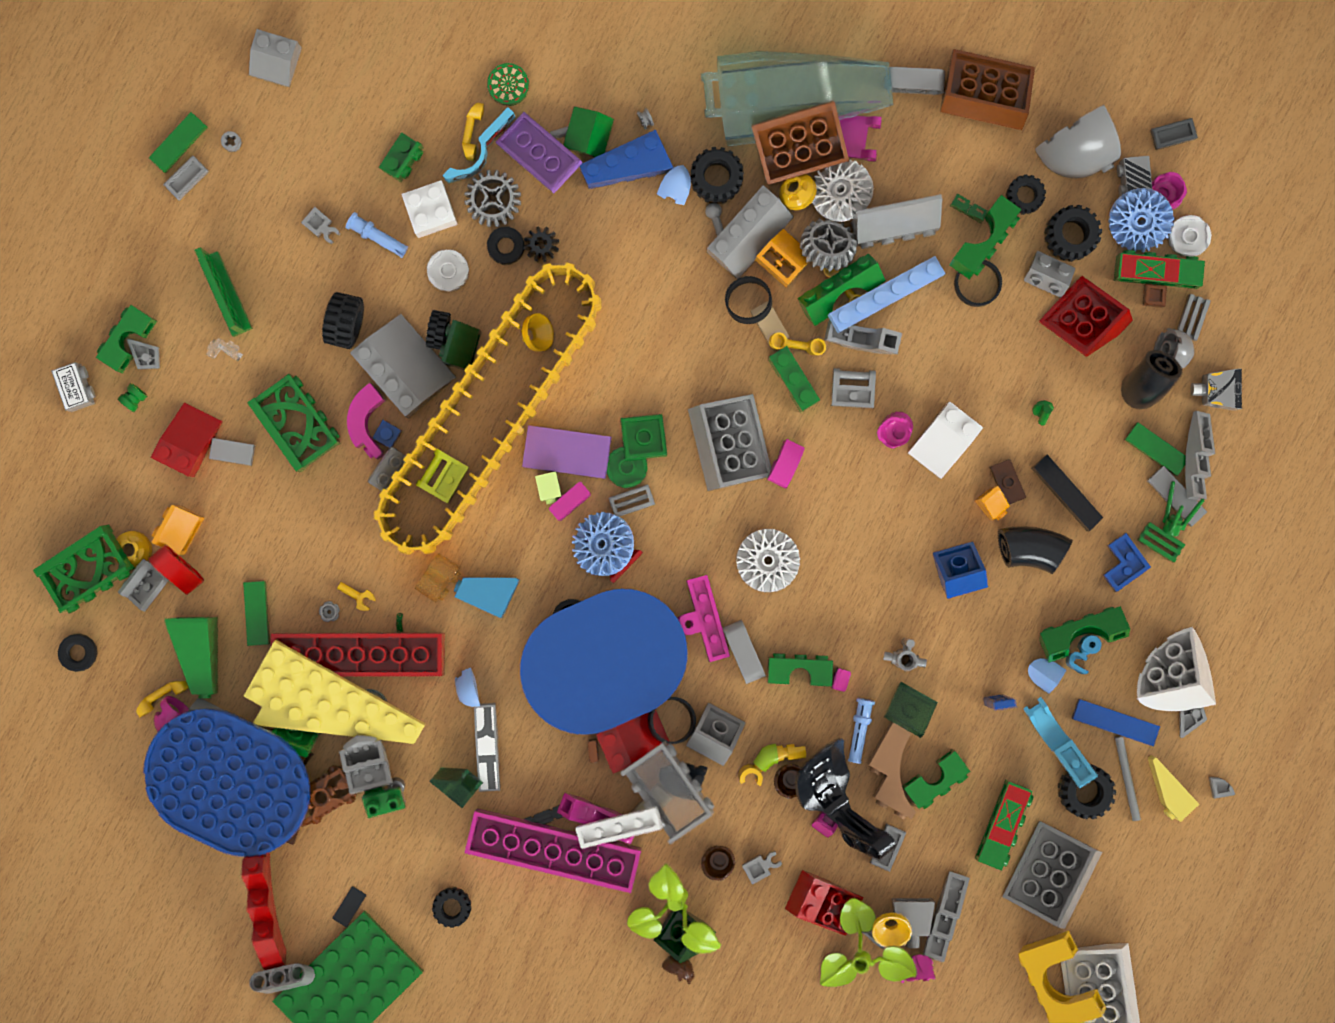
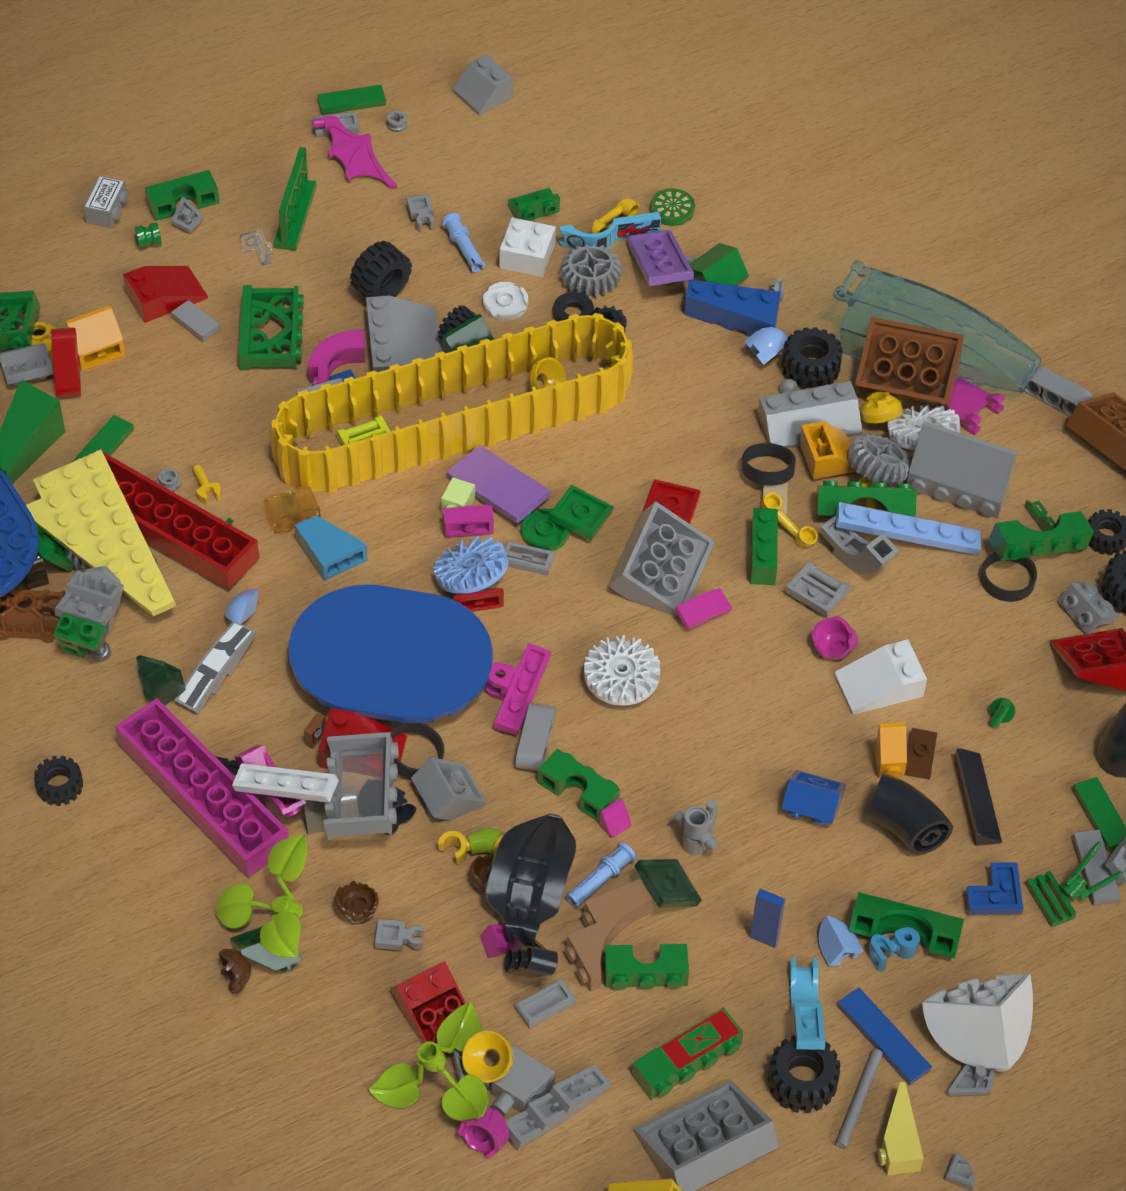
camera: 30 degrees right, 35 degrees down
(222, 200) = (353, 151): none -> dark pink animal
(700, 382) = (674, 497): none -> red tile

